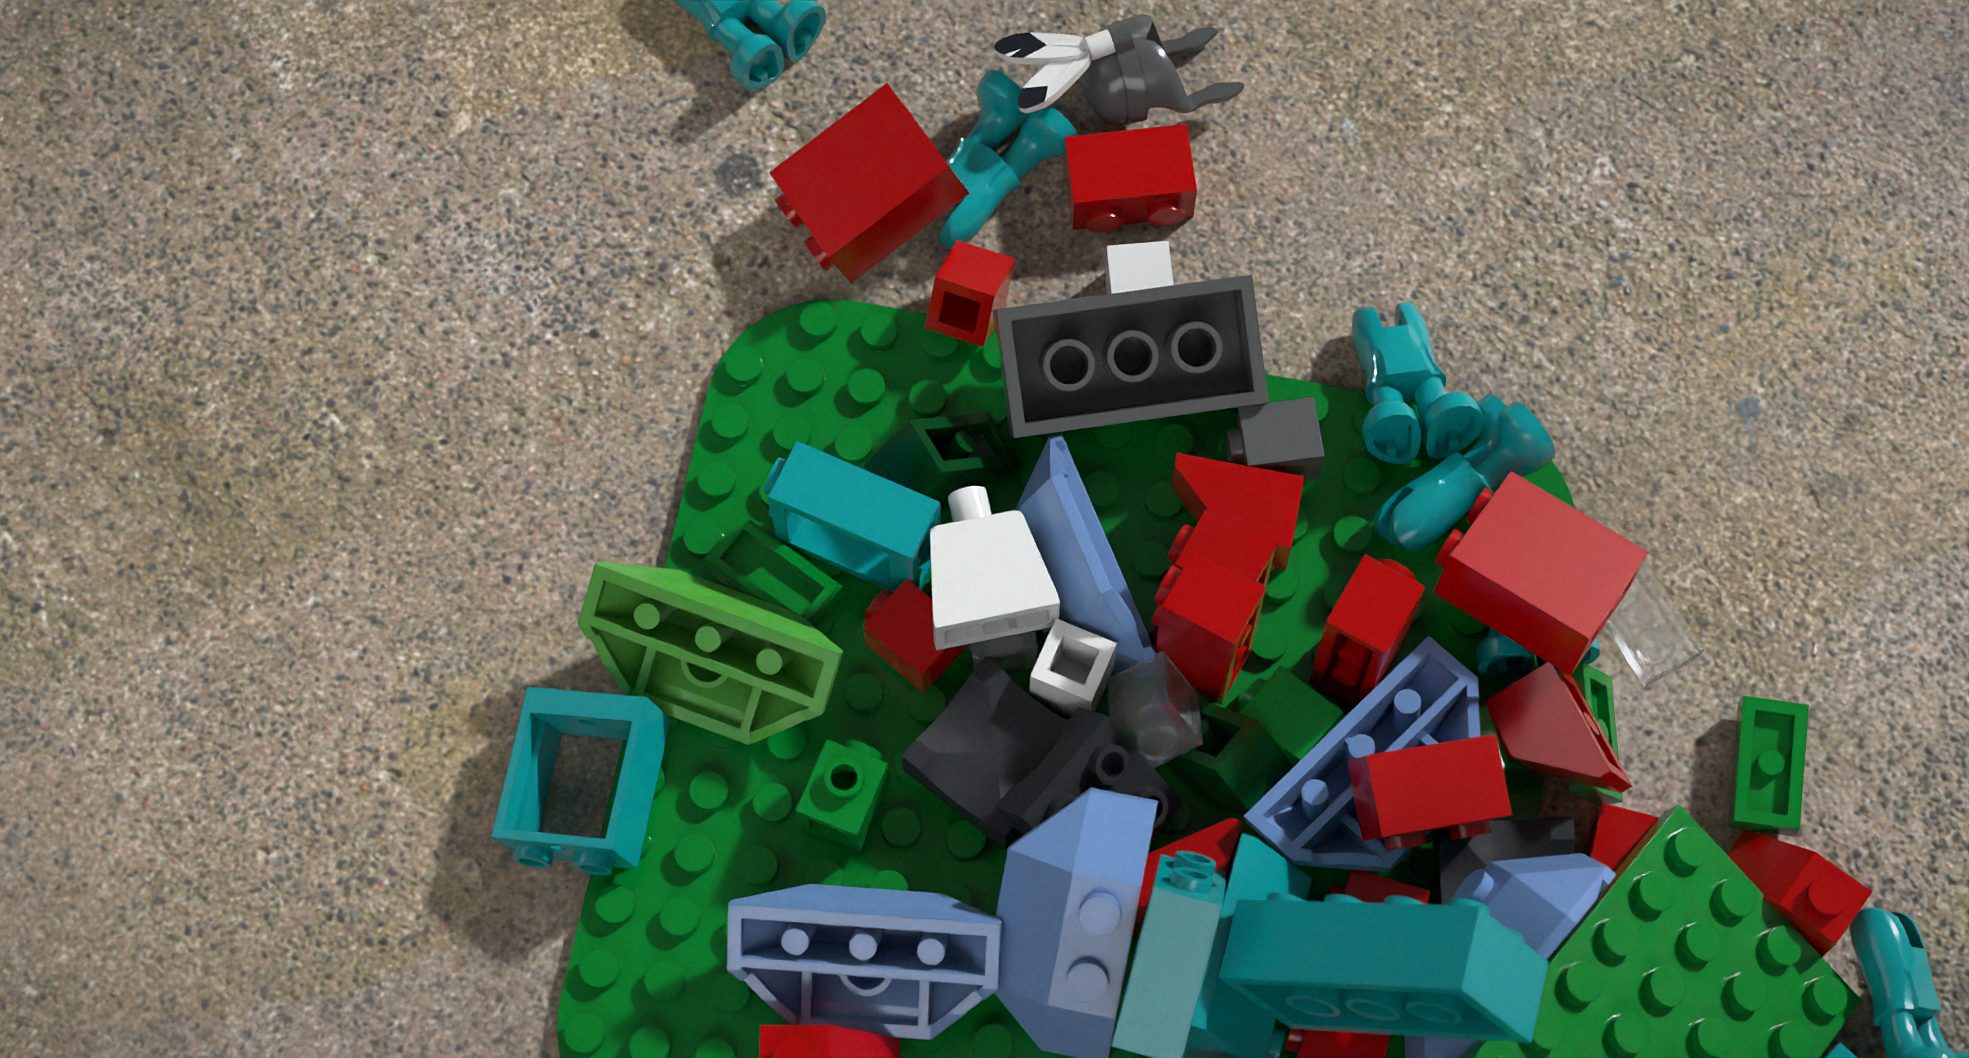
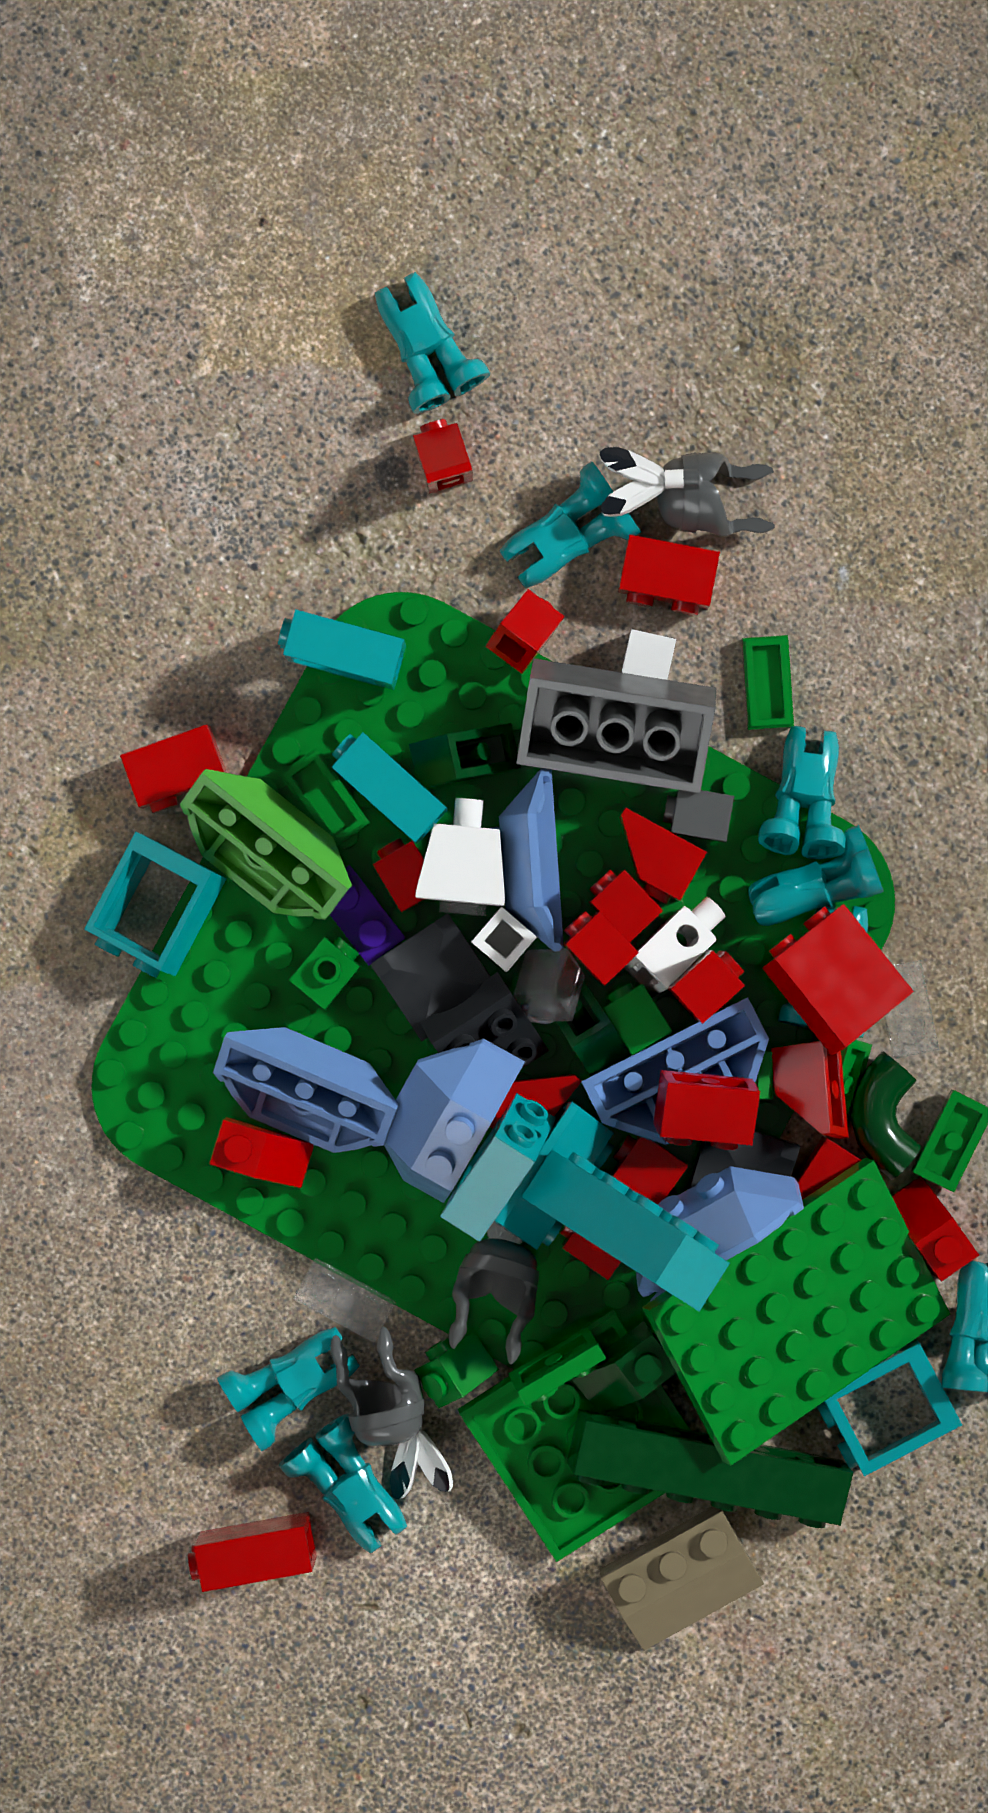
camera: 15 degrees right, 20 degrees up
(543, 600) = (171, 767): none -> red brick
(738, 368) = (342, 649): none -> teal window
(793, 113) = (442, 456): none -> red slope
(866, 185) = (477, 527): red brick -> none
(873, 713) = (365, 921): none -> dark purple plate
(1297, 611) = (663, 958): none -> white torso
(1302, 275) = (767, 682): none -> green tile
(1652, 757) = (876, 1119): none -> dark green cylinder

